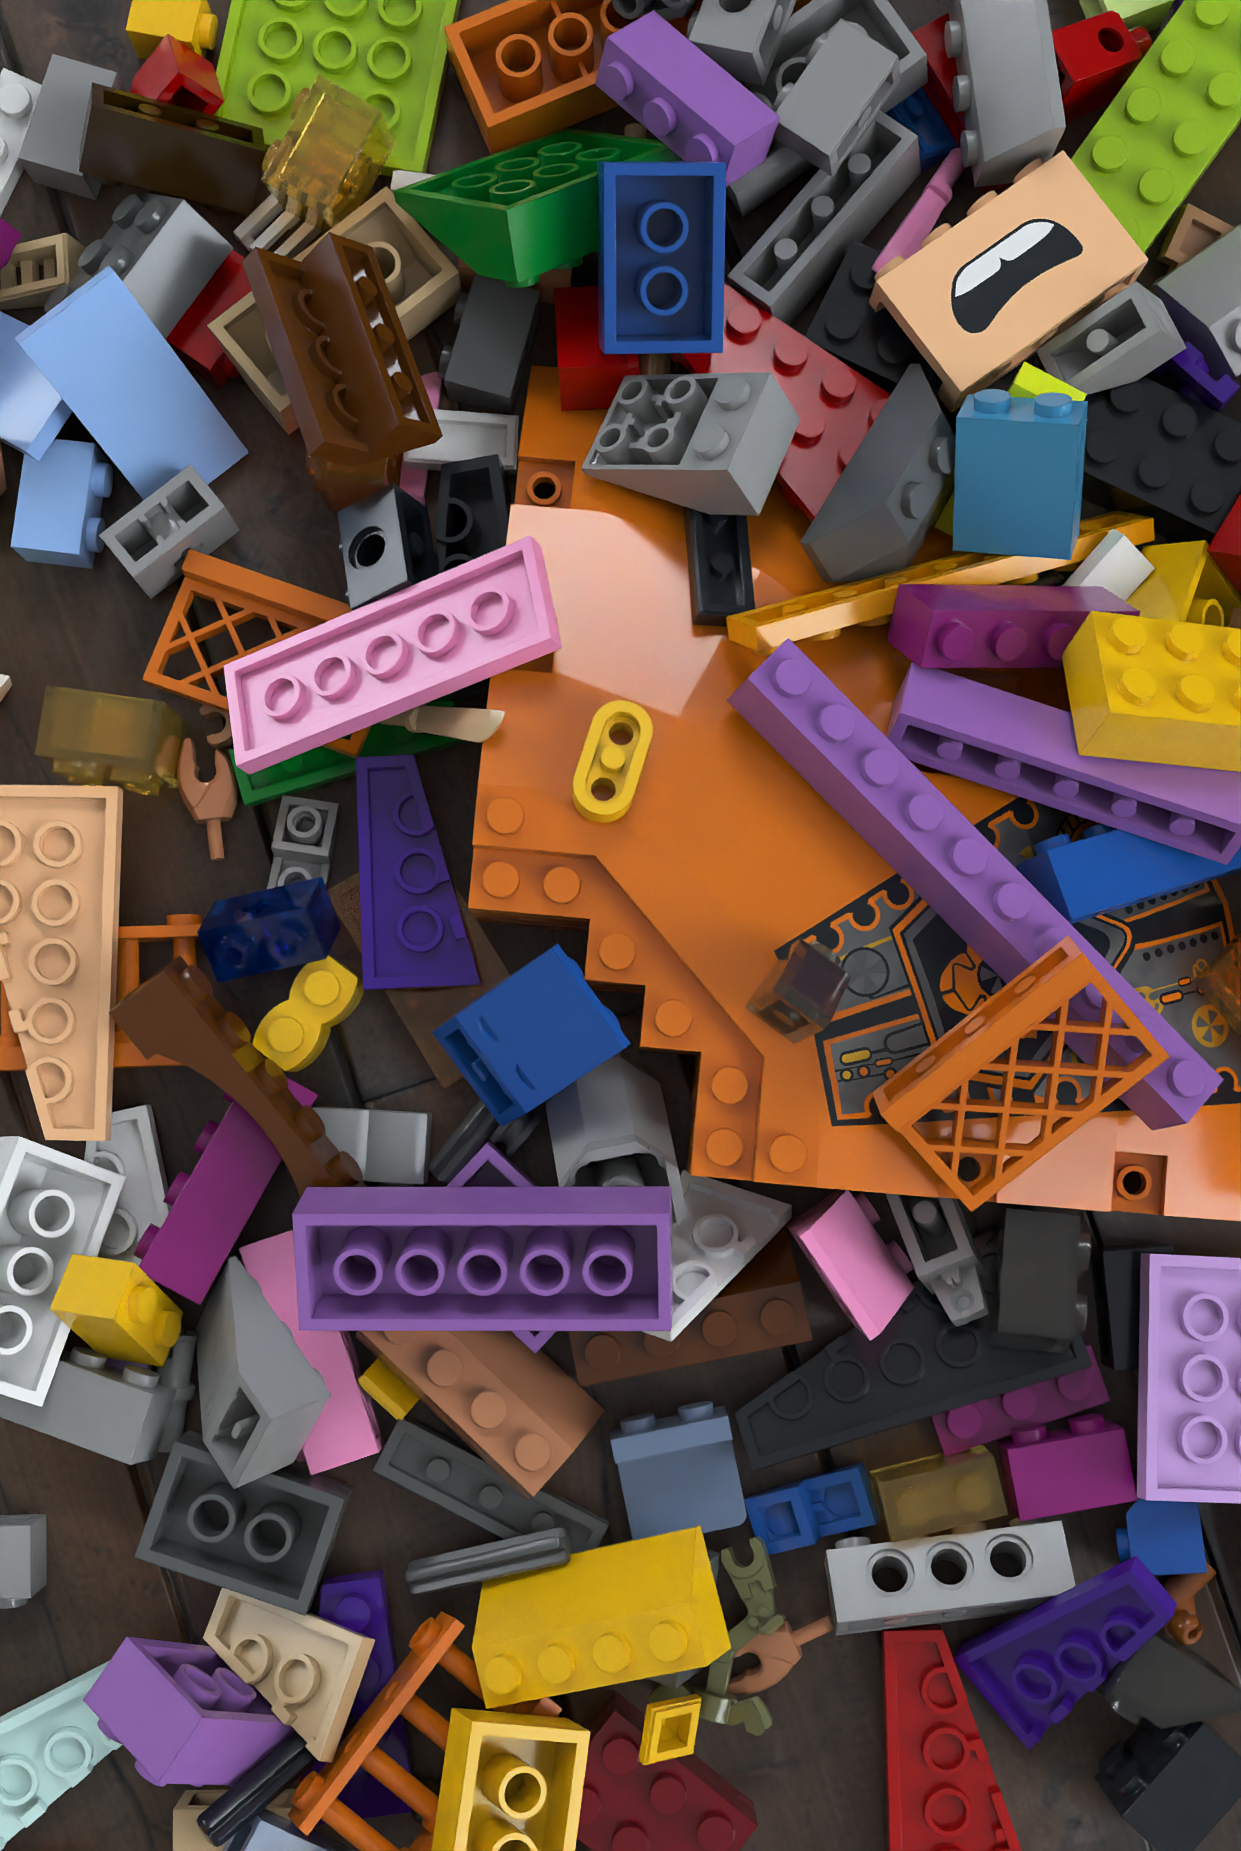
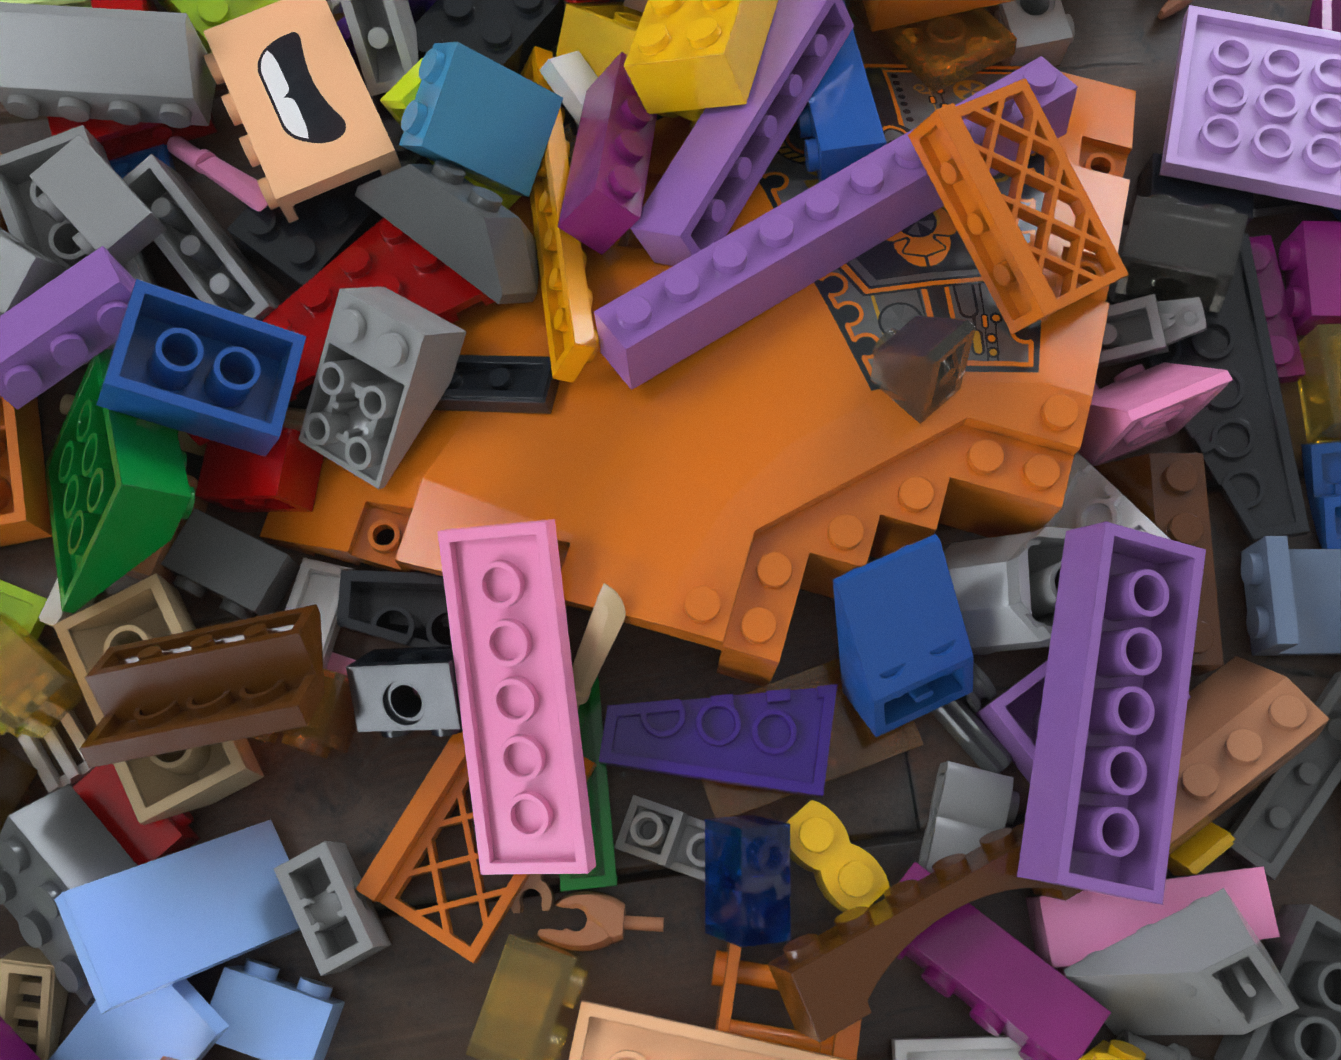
camera: 80 degrees left, 10 degrees down
(612, 764) = (675, 495): yellow plate -> none

